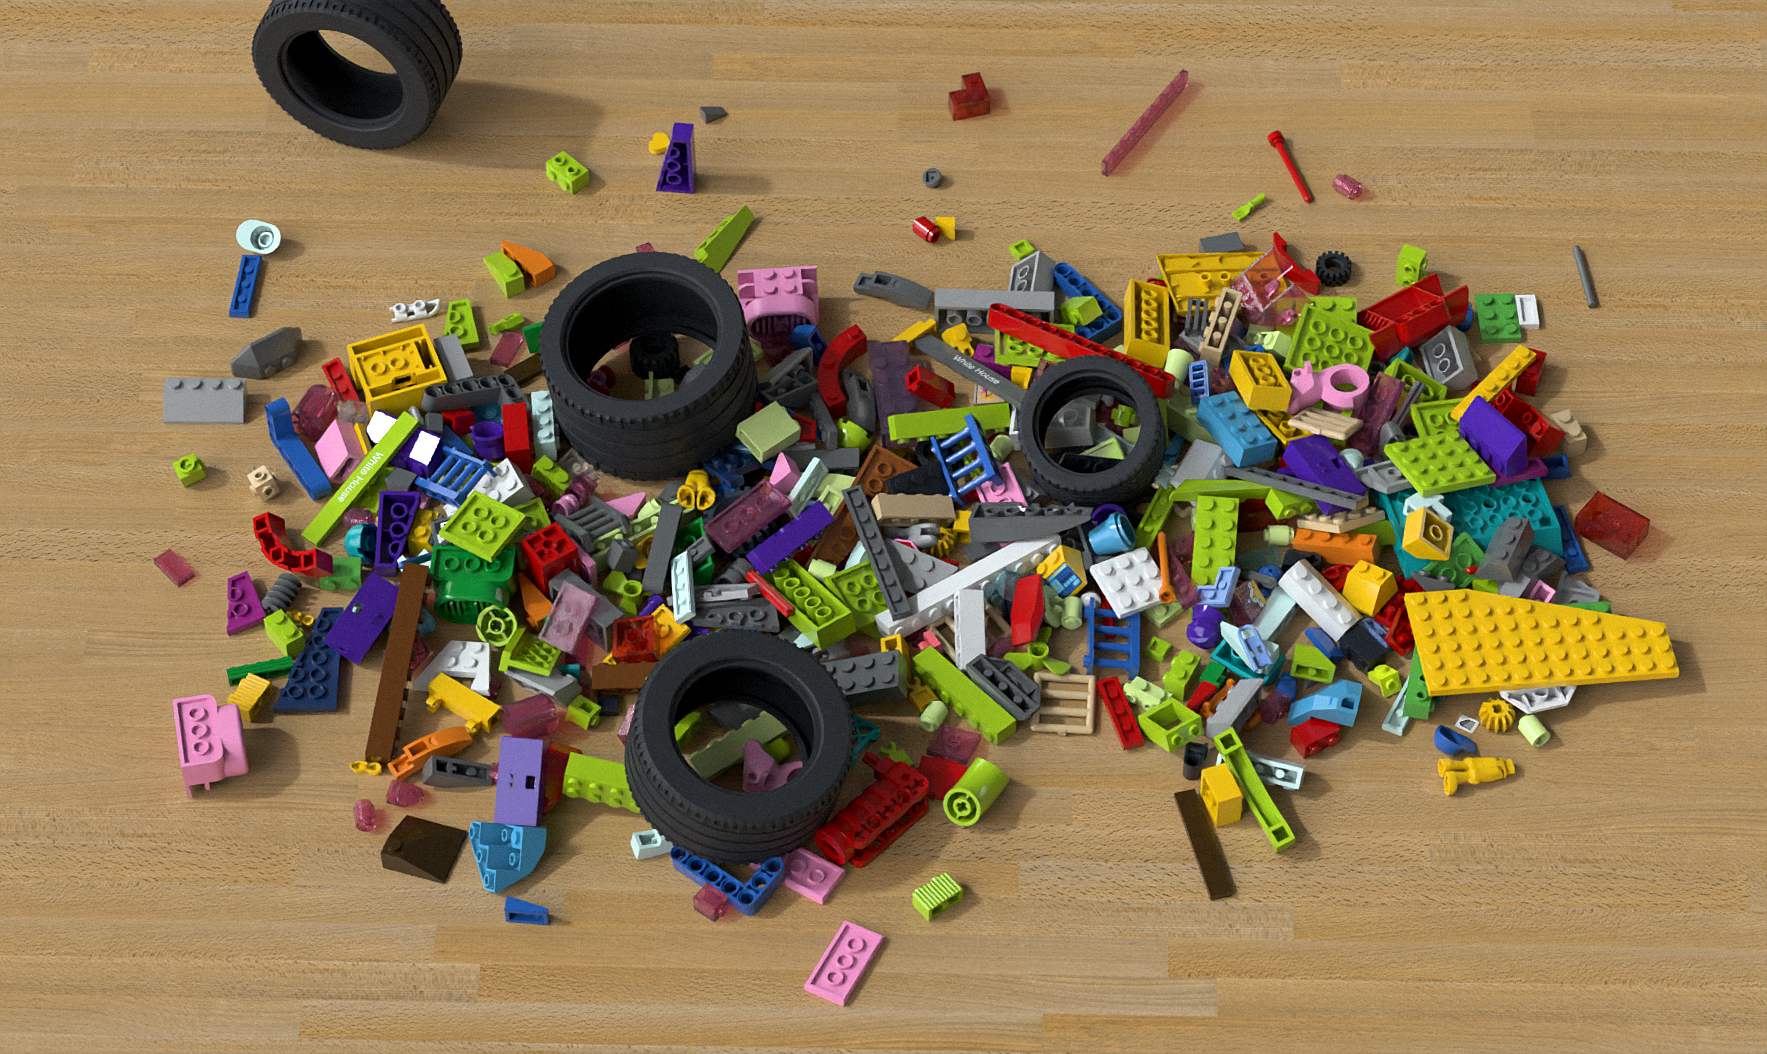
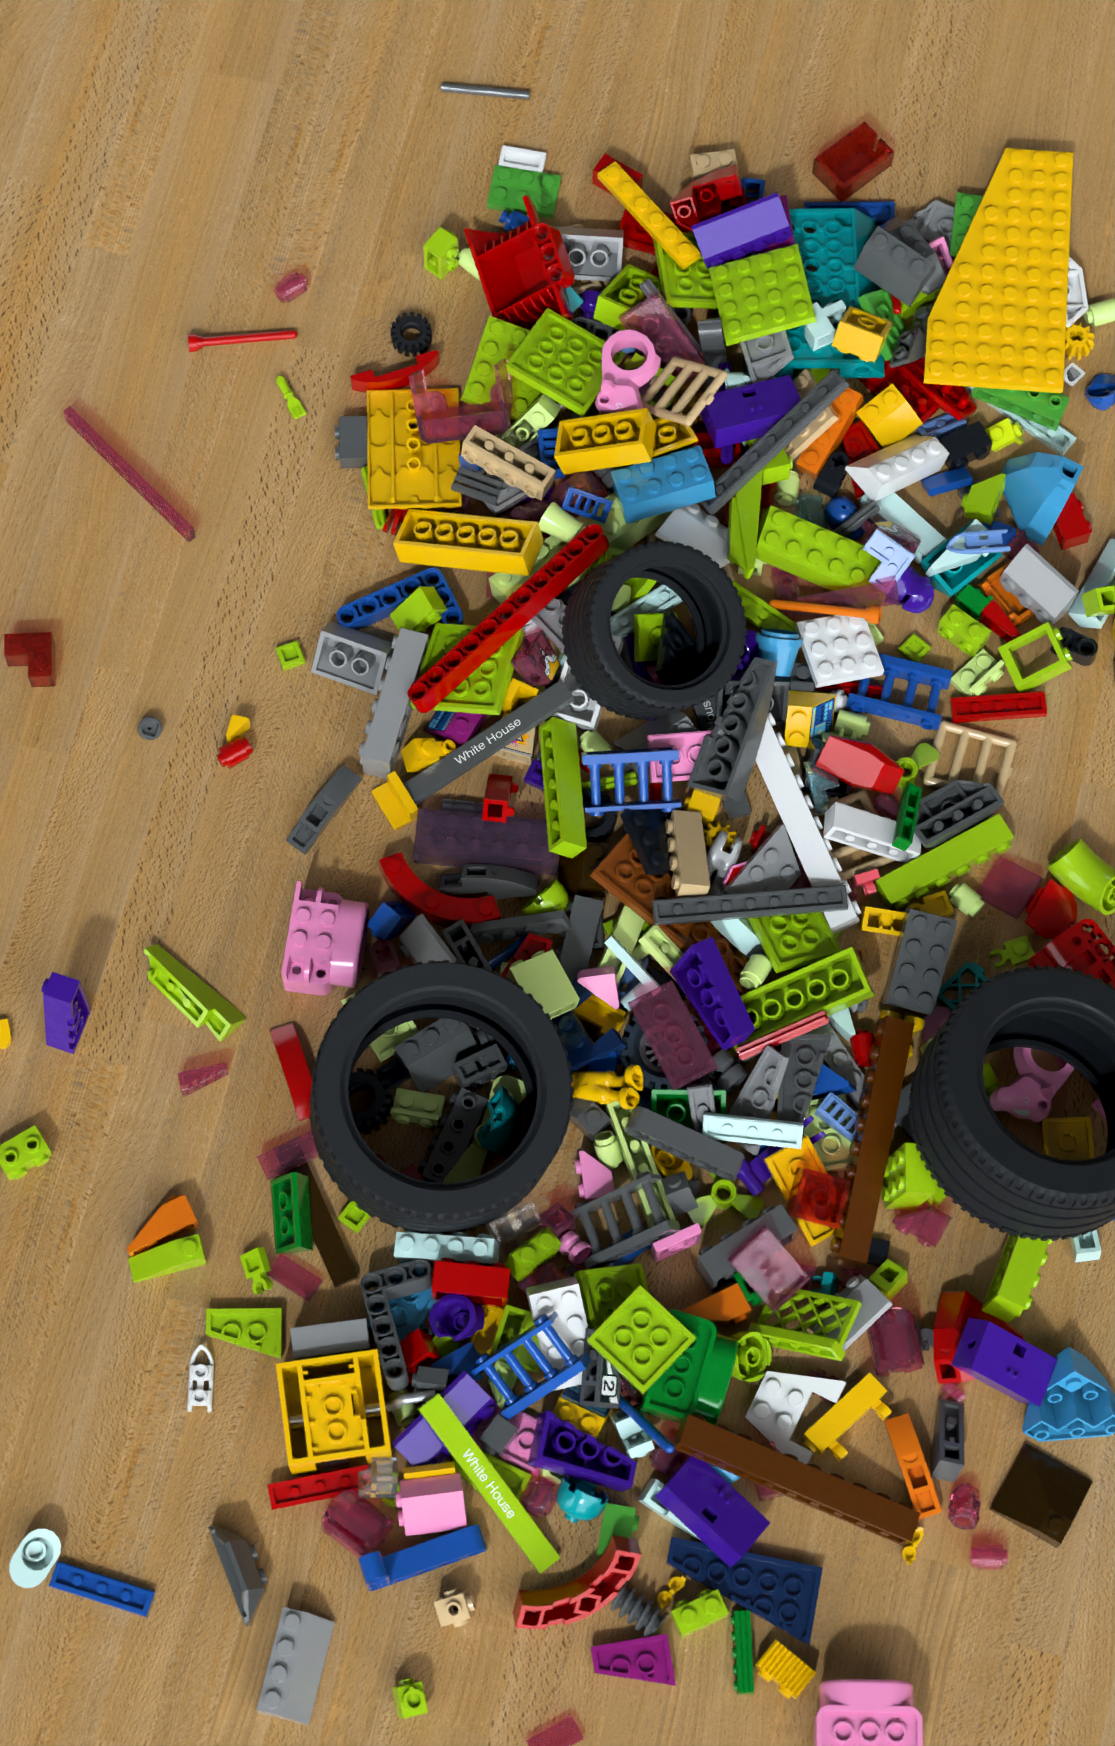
camera: 80 degrees left, 20 degrees up
(547, 555) = (674, 1275): red piece -> none
(991, 649) = (907, 817): none -> green piece

